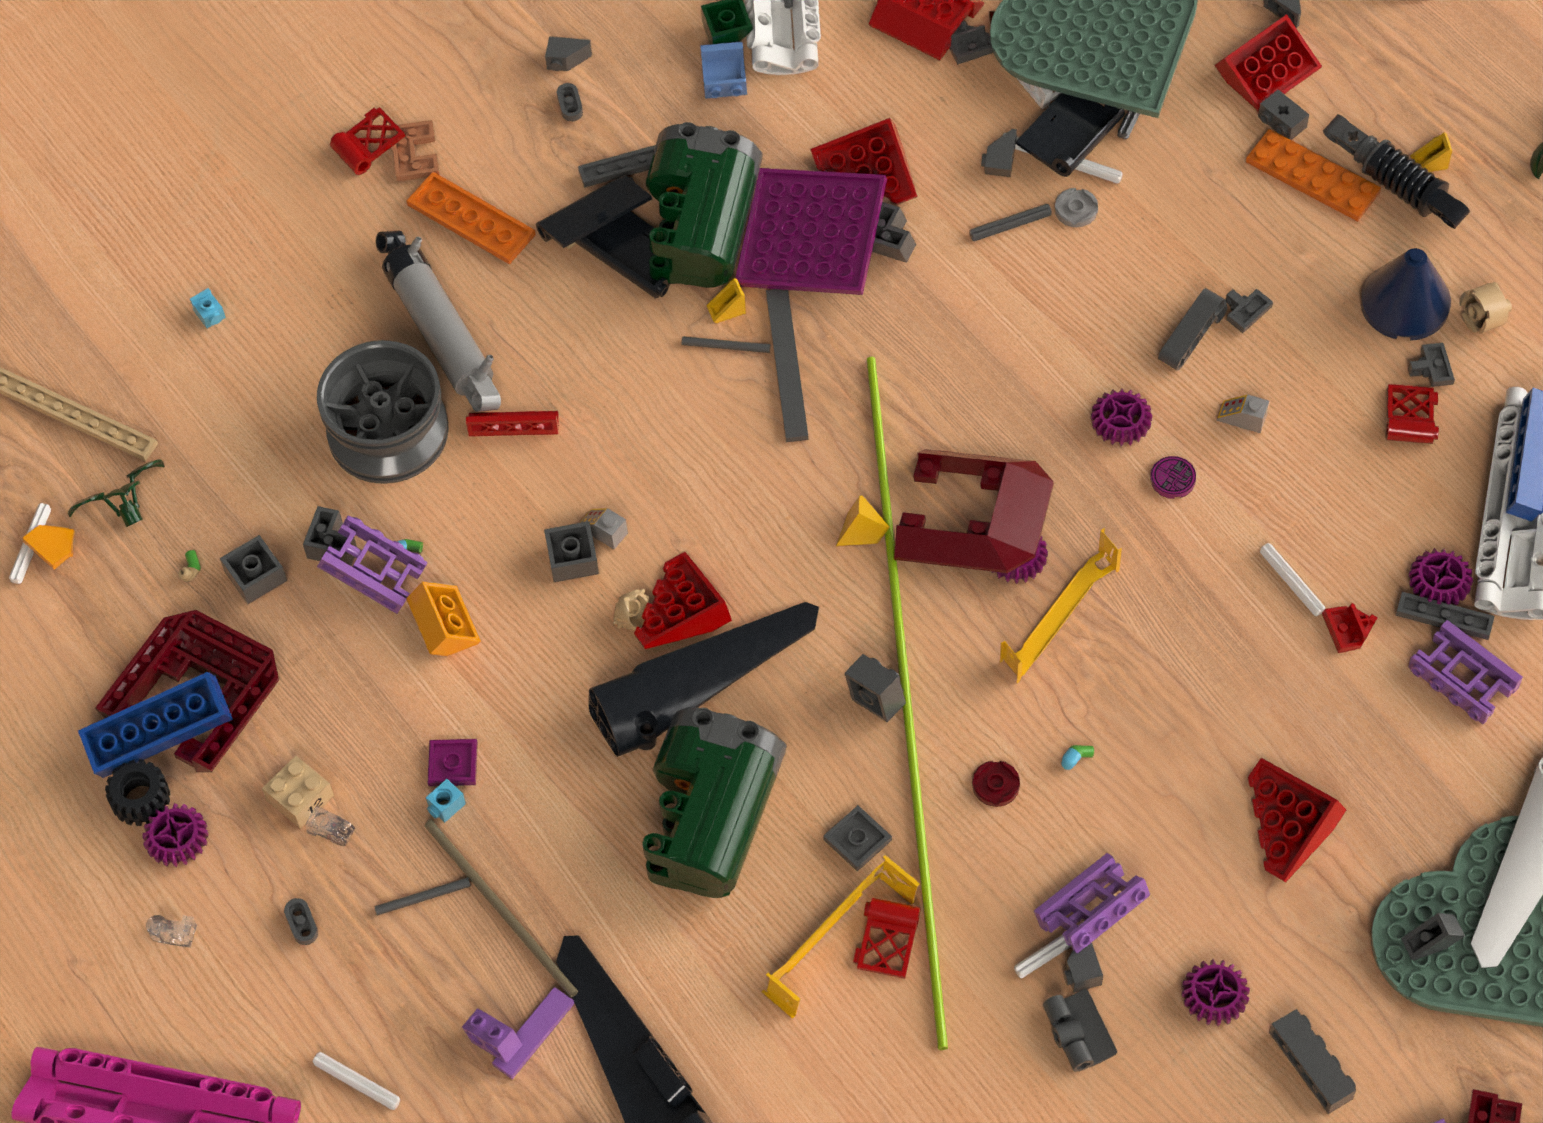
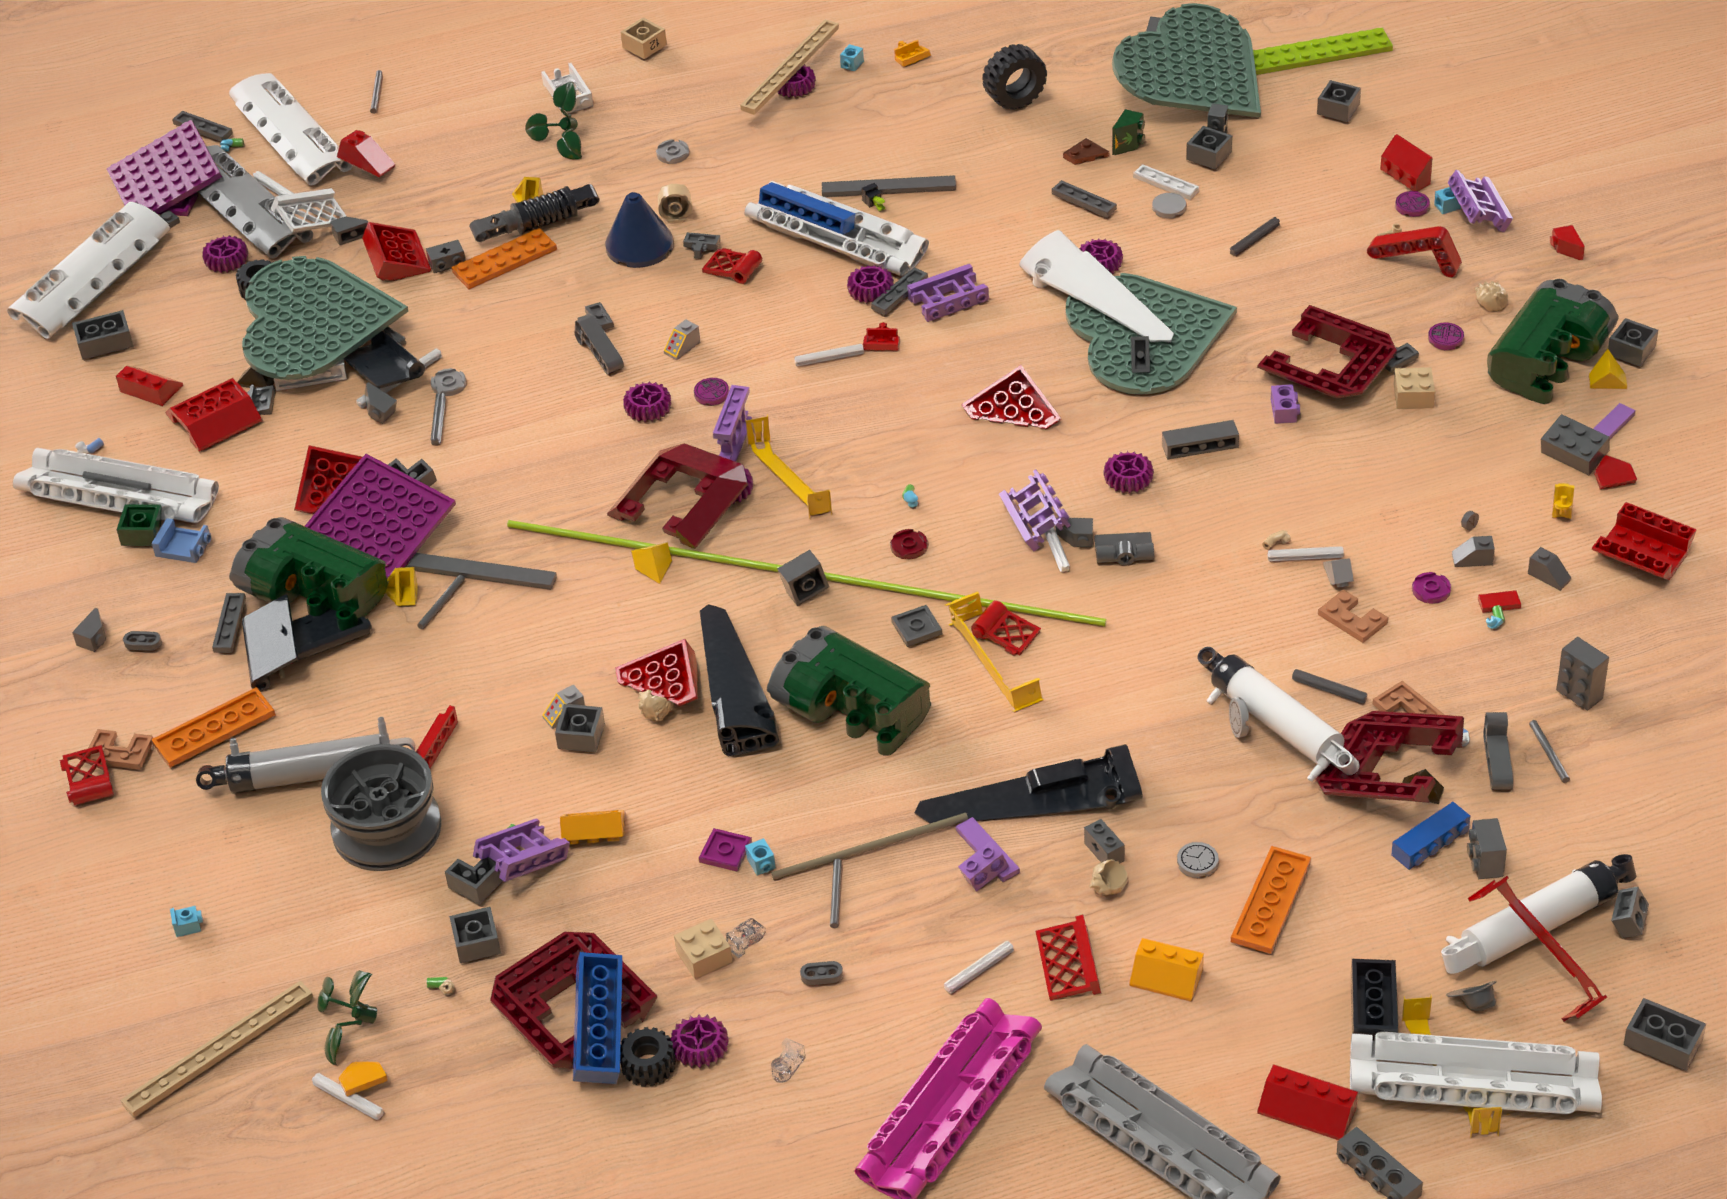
camera: 70 degrees left, 15 degrees down
(1081, 519) = (731, 424): none -> medium lavender fence

